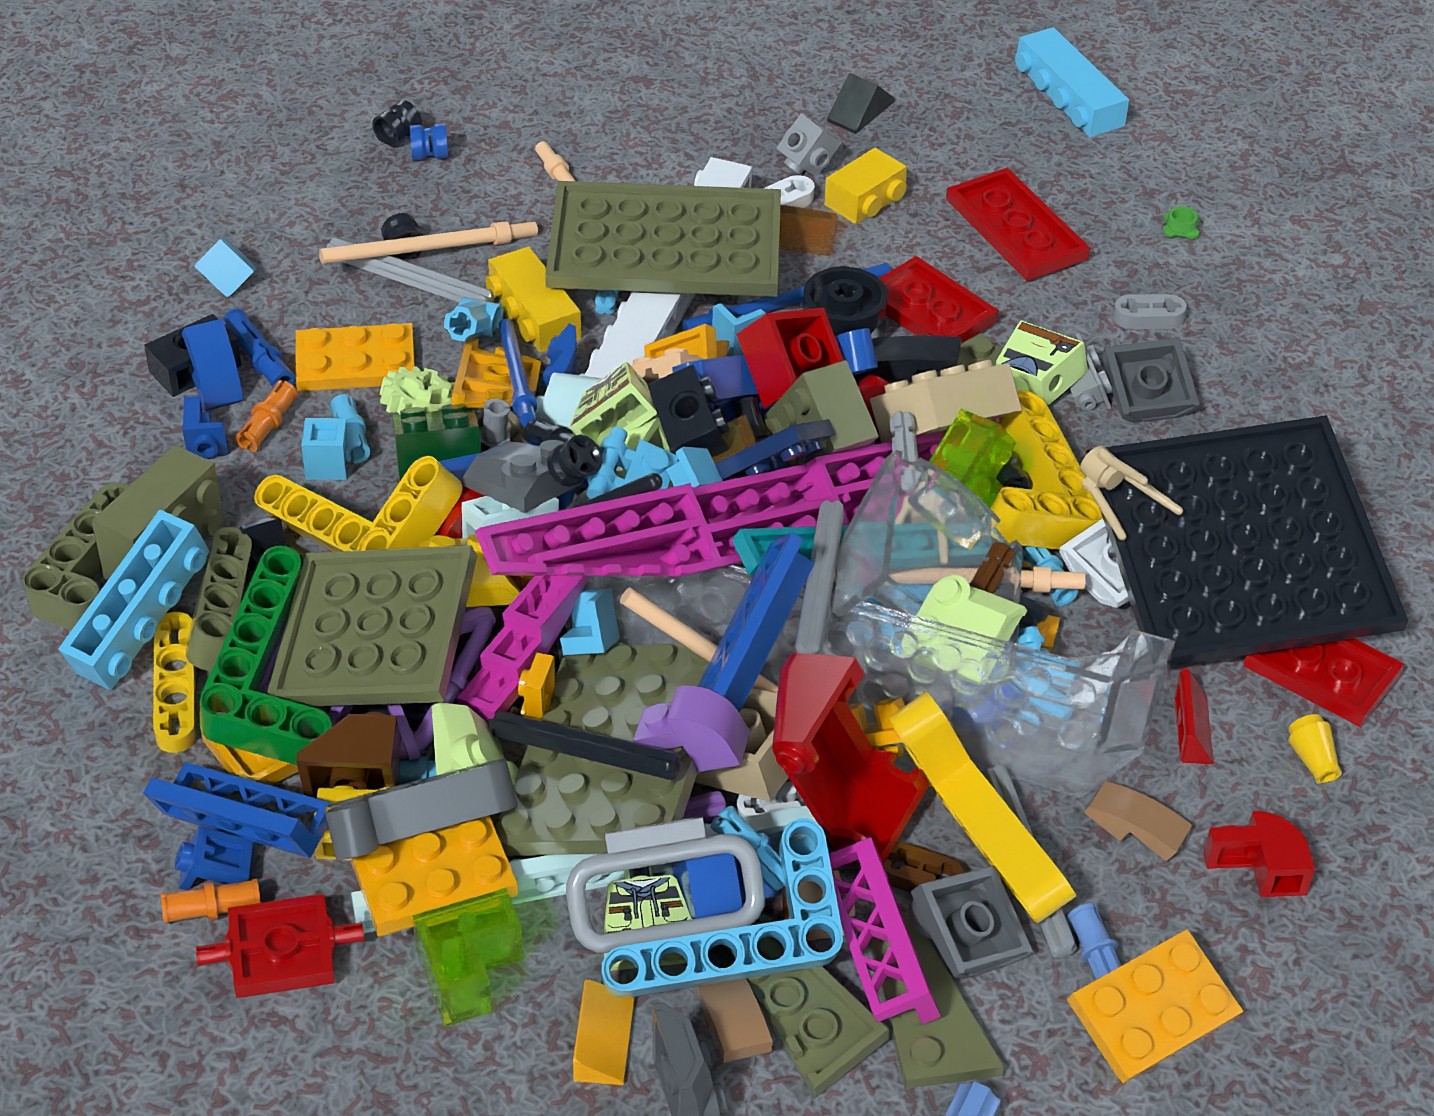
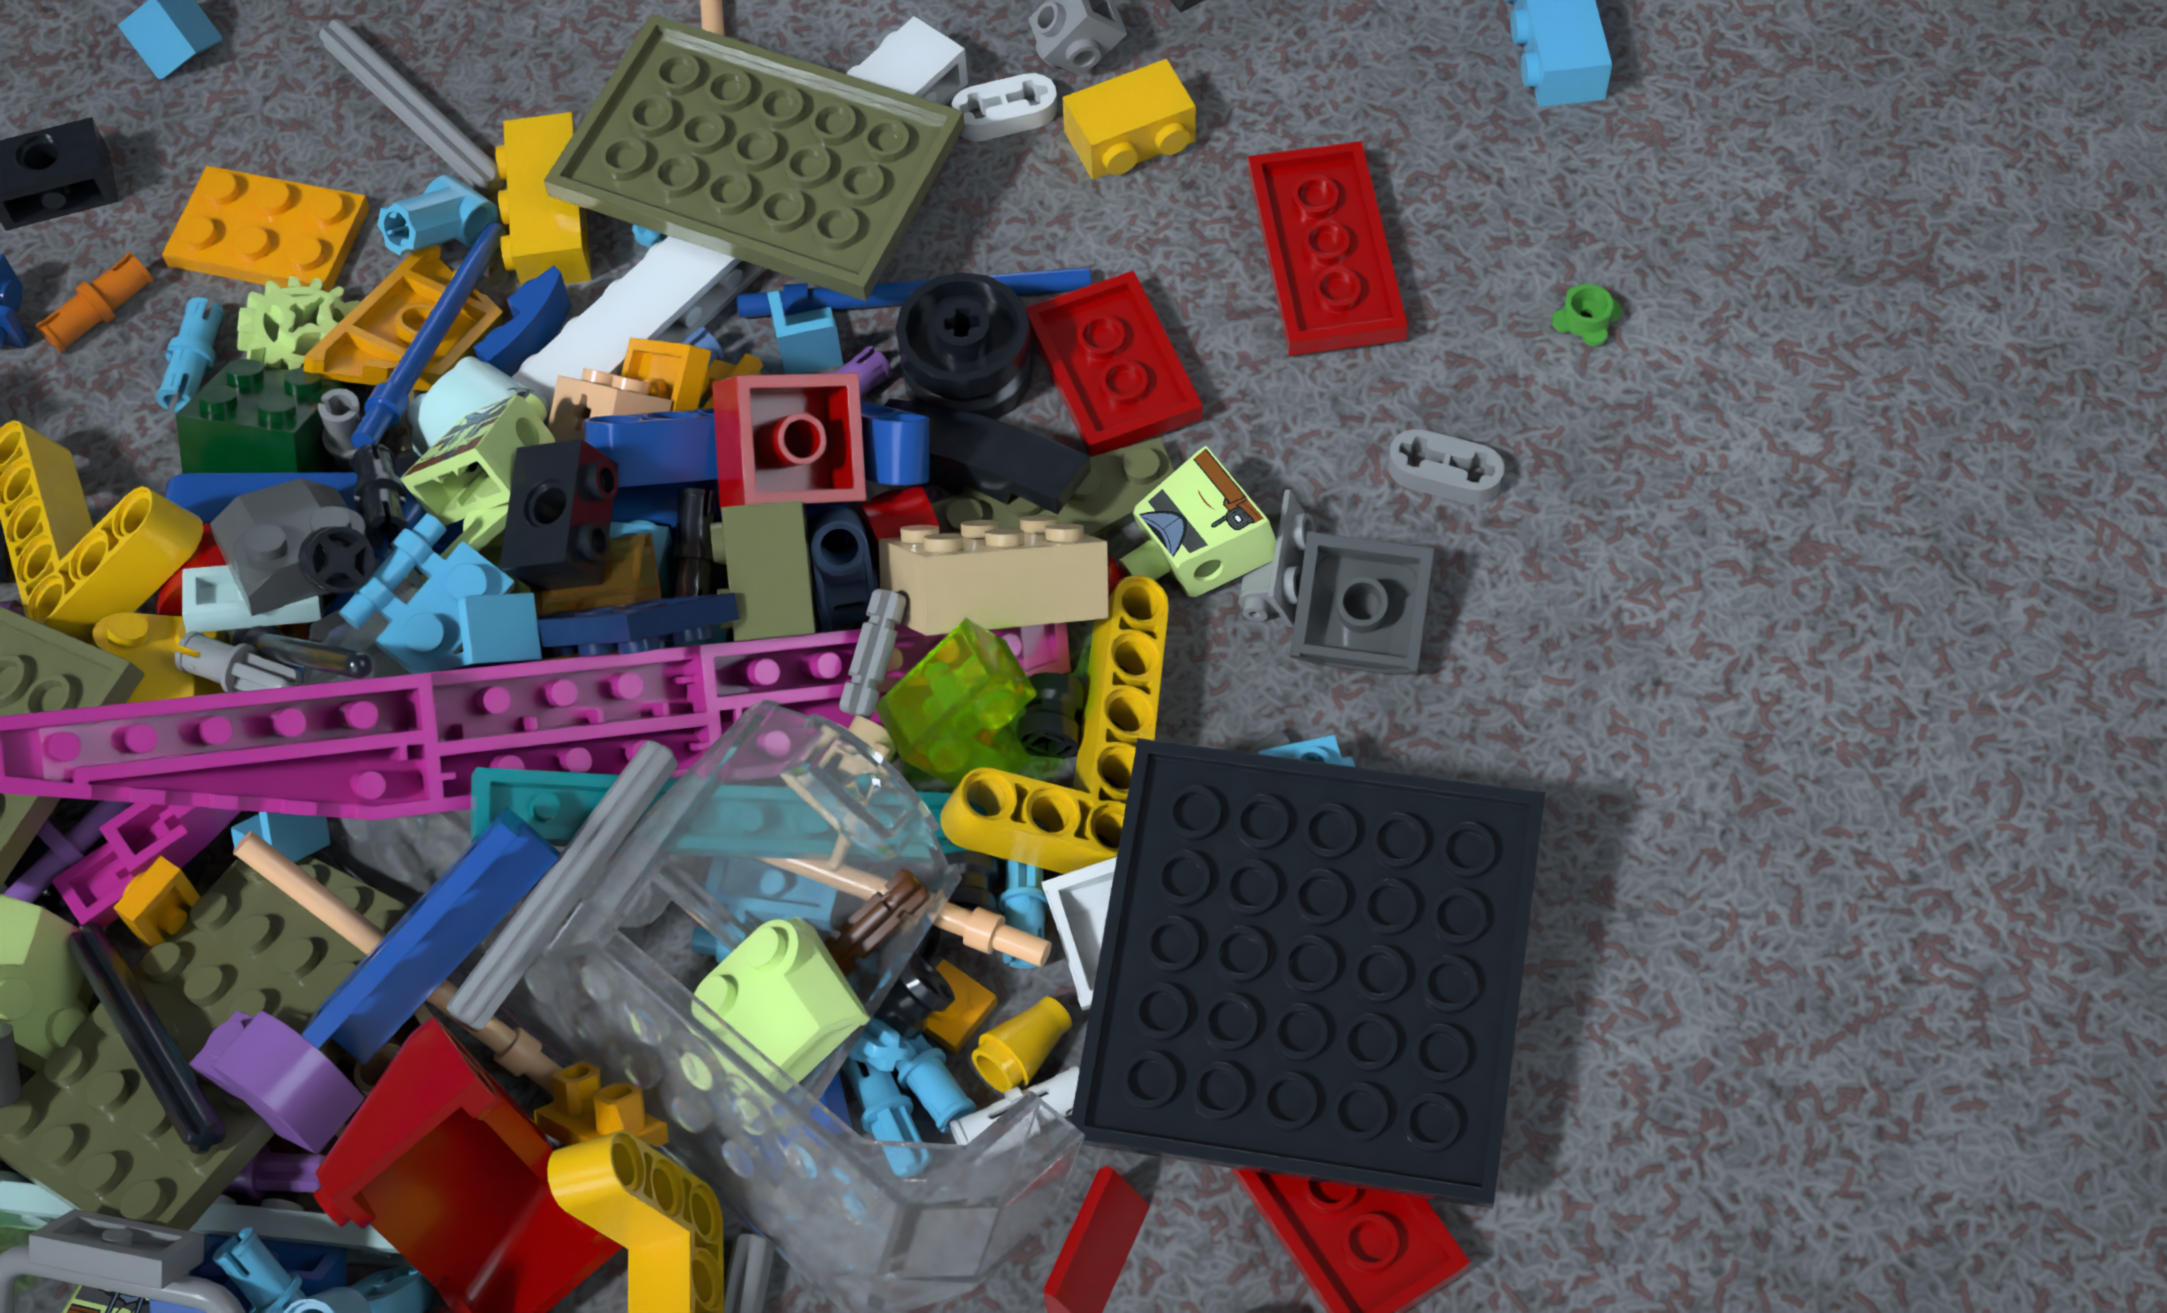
camera: 25 degrees right, 15 degrees up
(213, 364) = (49, 203): blue slope -> none
(265, 358) = (143, 203): blue pin -> none
(324, 448) = (122, 382): medium azure panel -> none
(401, 226) = (428, 41): black wheel -> none
(498, 233) = (566, 67): light nougat bar -> none
(807, 230) = (996, 175): clear orange slope -> none
(1089, 635) = (1019, 1046): none -> yellow cone
(1108, 471) = (1135, 795): tan plant -> none

